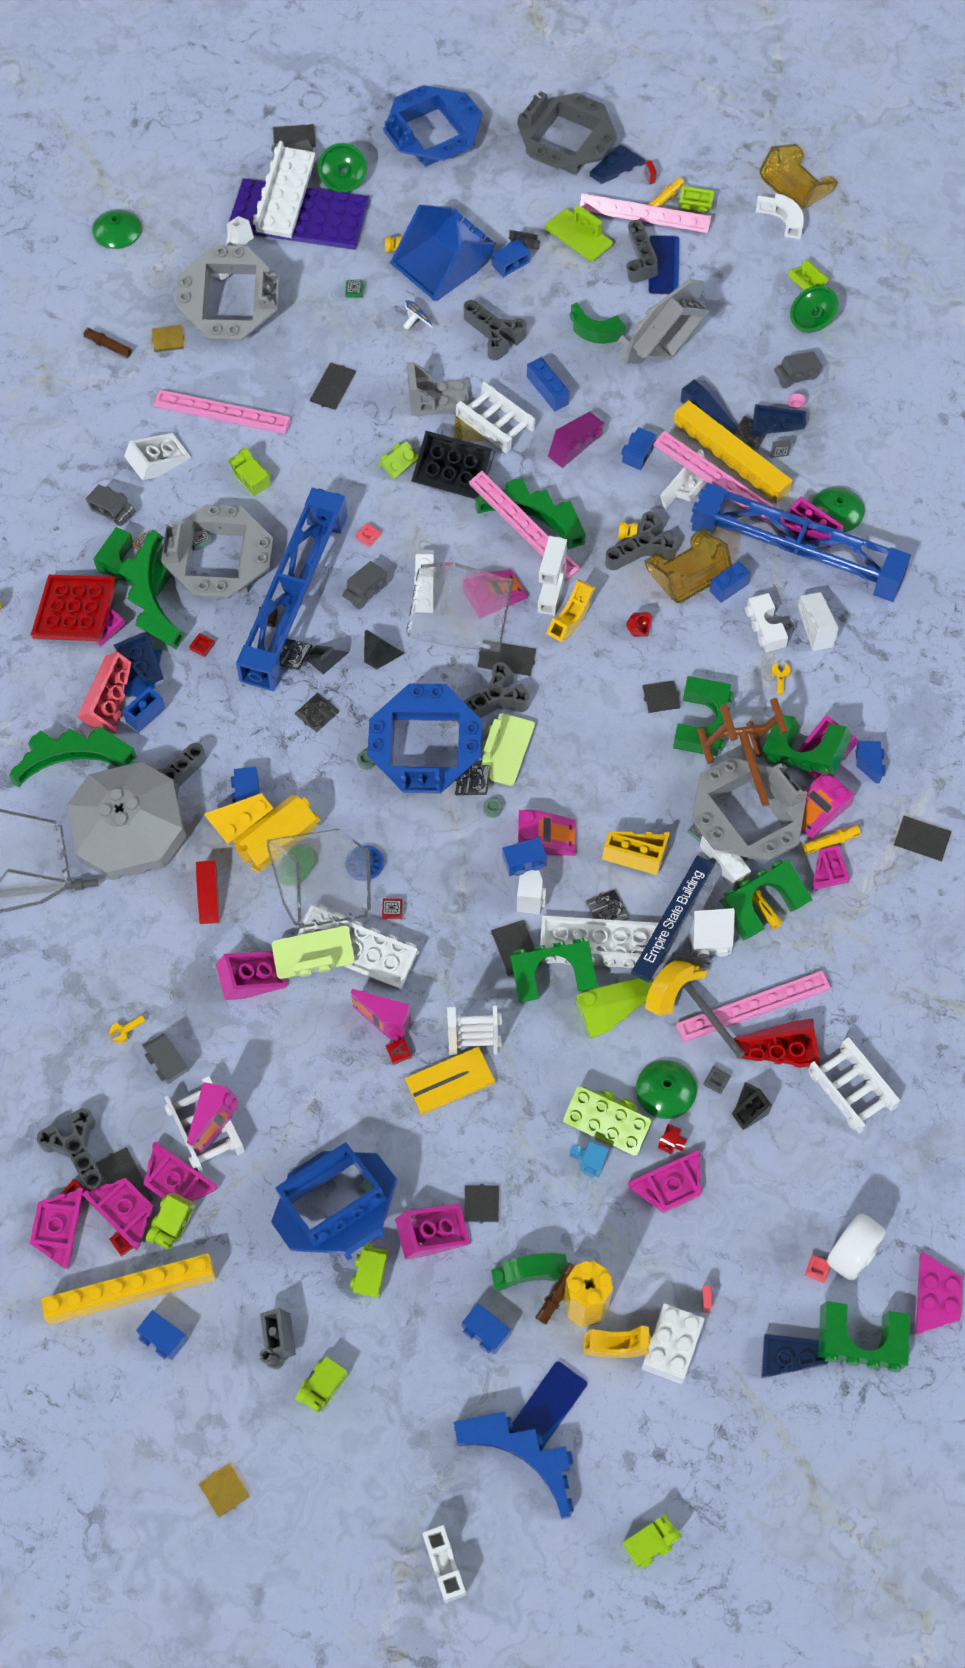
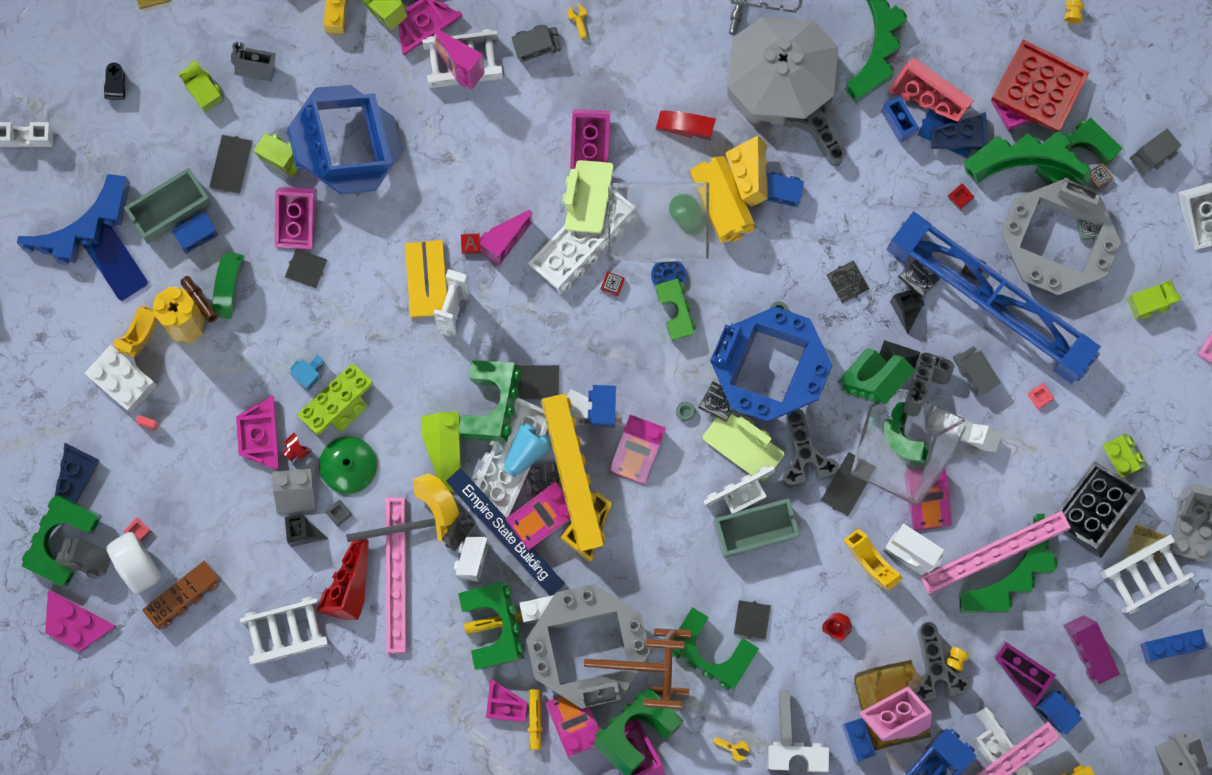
camera: 105 degrees right, 15 degrees up
(351, 1484) = (114, 85): none -> black piece
(385, 620) = (928, 369): none -> dark grey beam
(396, 1324) = (231, 164): none -> clear smoke piece
(411, 833) = (672, 293): none -> bright green arch
(419, 632) = (875, 378): none -> green arch
(459, 616) = (894, 430): none -> arch
(468, 1366) = (167, 205): none -> sand green piece
(552, 732) = (744, 493): none -> white bracket
(580, 711) = (756, 528): none -> sand green piece
(589, 920) = (526, 449): none -> medium azure cone
(597, 866) = (572, 472): none -> yellow brick
(618, 477) = (1025, 673): none -> magenta wedge
(644, 889) = (540, 516): none -> dark pink slope
(699, 550) = (898, 716): none -> bright pink slope
(713, 1127) = (294, 491): none -> light grey slope
(737, 640) = (785, 717): none -> light grey beam
(863, 1196) = (181, 595): none -> dark orange brick
(872, 1302) = (83, 557): none -> dark grey hinge

